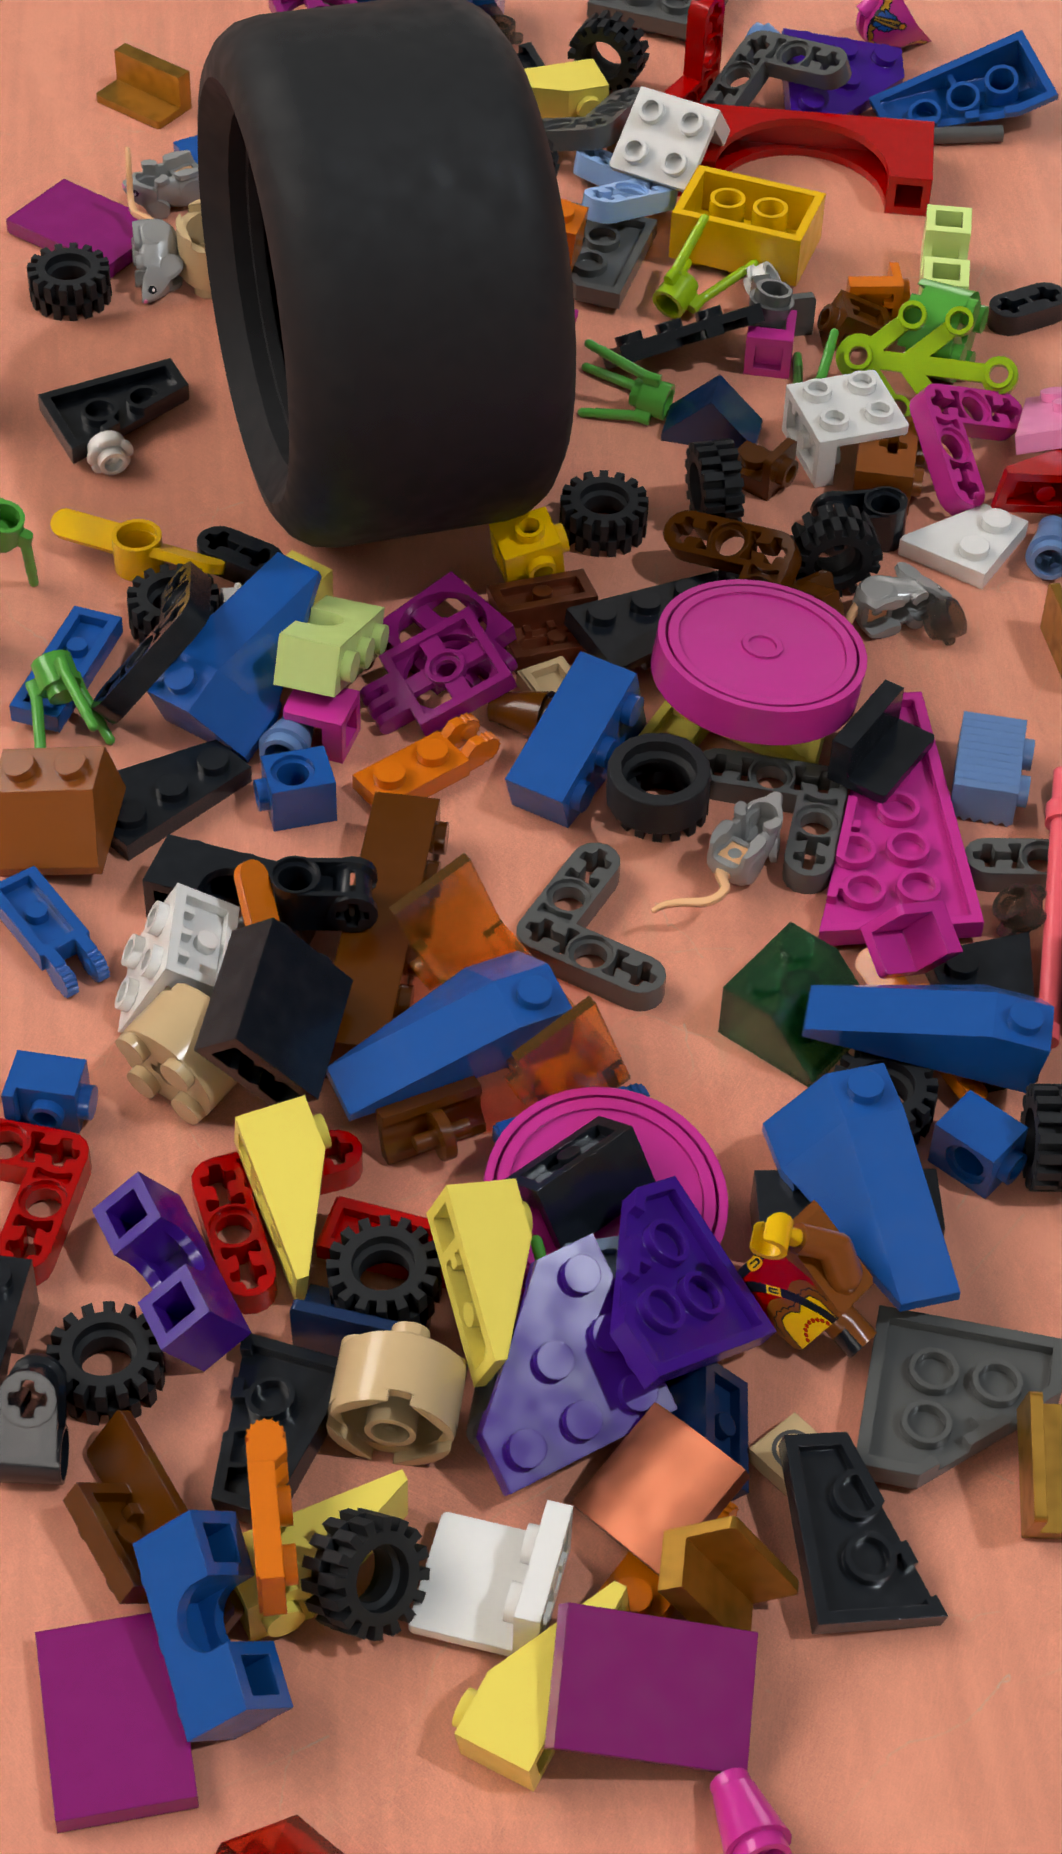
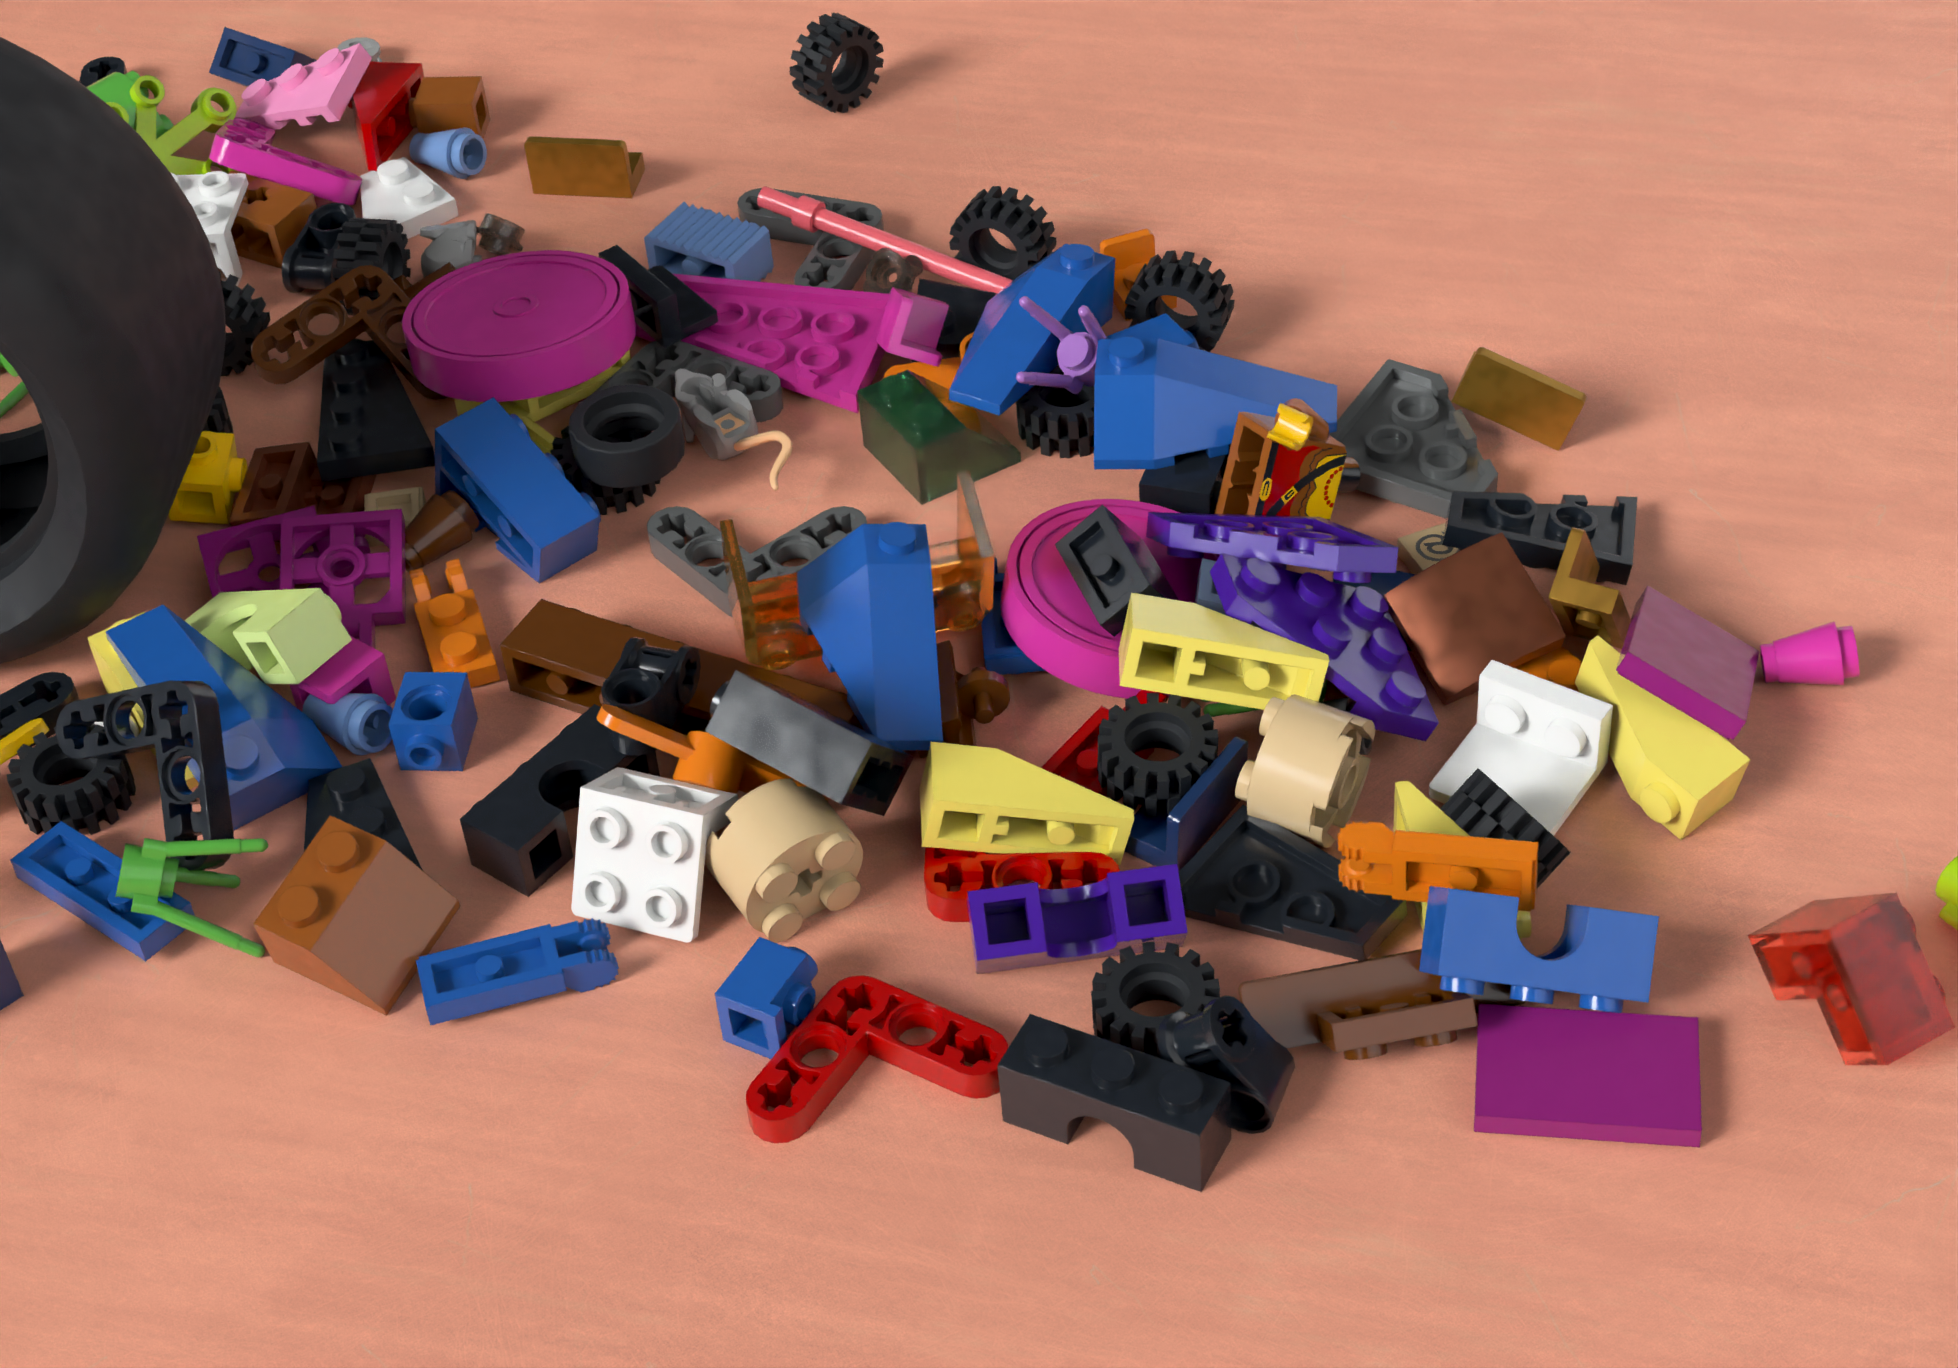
camera: 65 degrees left, 5 degrees down
(905, 1065) = (1075, 352): none -> medium lavender plant

